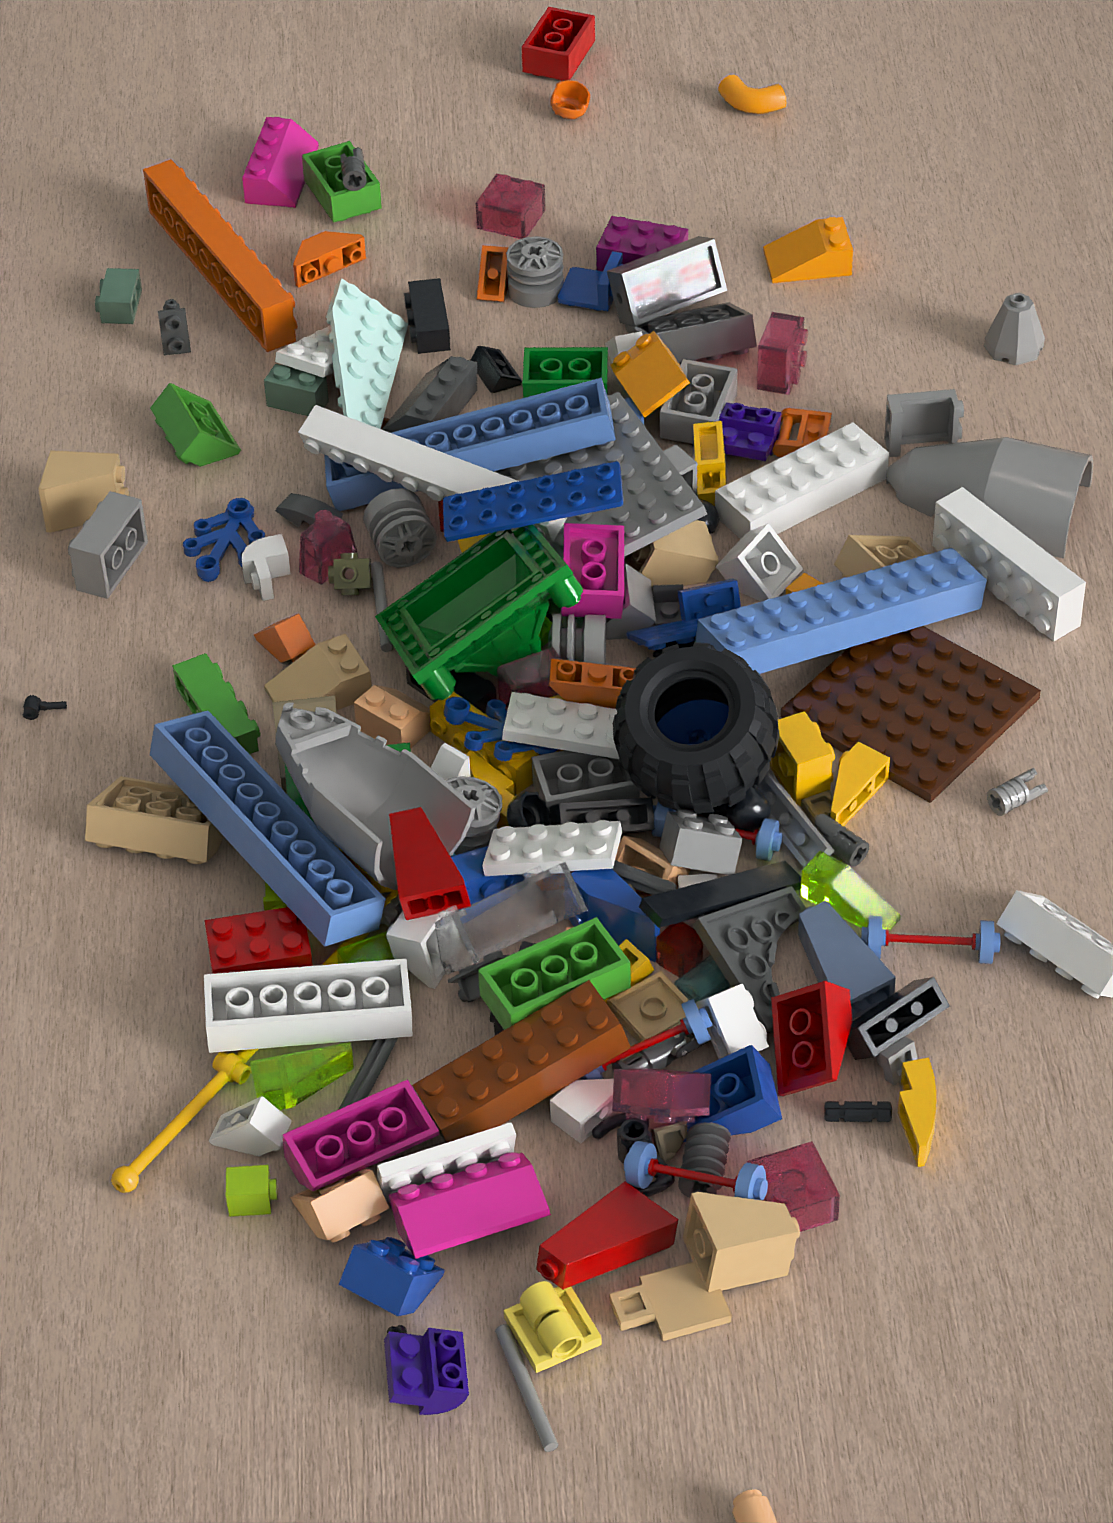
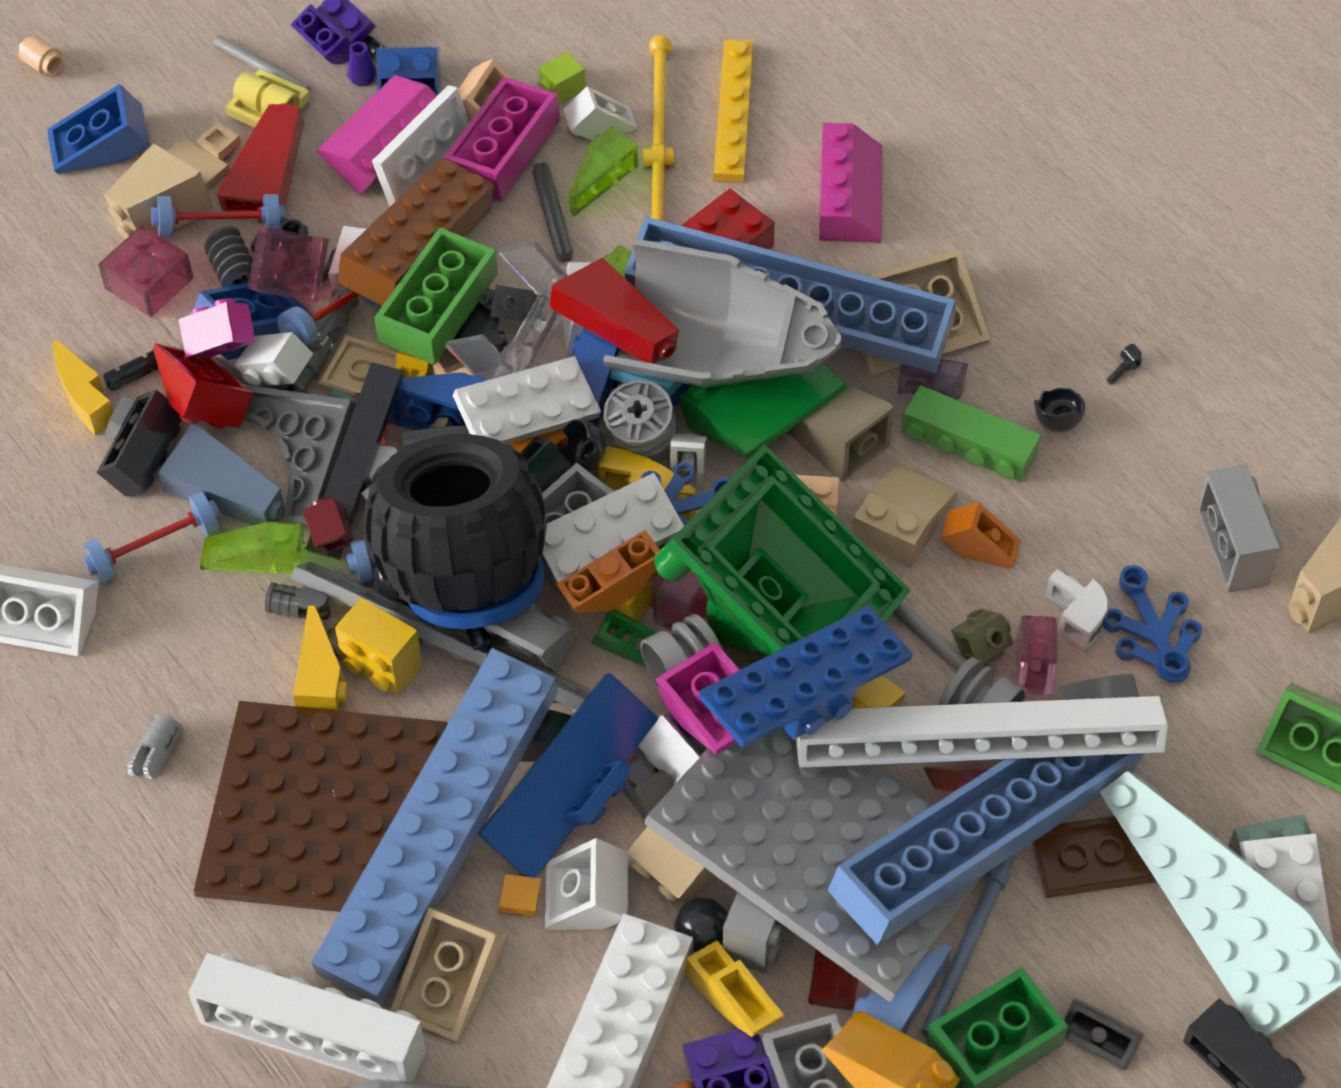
camera: 145 degrees right, 10 degrees up
(101, 951) = (850, 185): none -> dark pink slope
(118, 1084) = (733, 111): none -> yellow plate
(132, 688) = (1060, 409): none -> black hair
(307, 1005) = (616, 199): white brick -> none
(430, 1310) = (360, 65): none -> dark purple cone
(438, 395) = (1112, 913): dark grey slope -> none
(750, 1379) = (99, 132): none -> blue slope
(772, 1046) = (216, 329): none -> brick
(780, 859) = (328, 525): none -> dark red brick

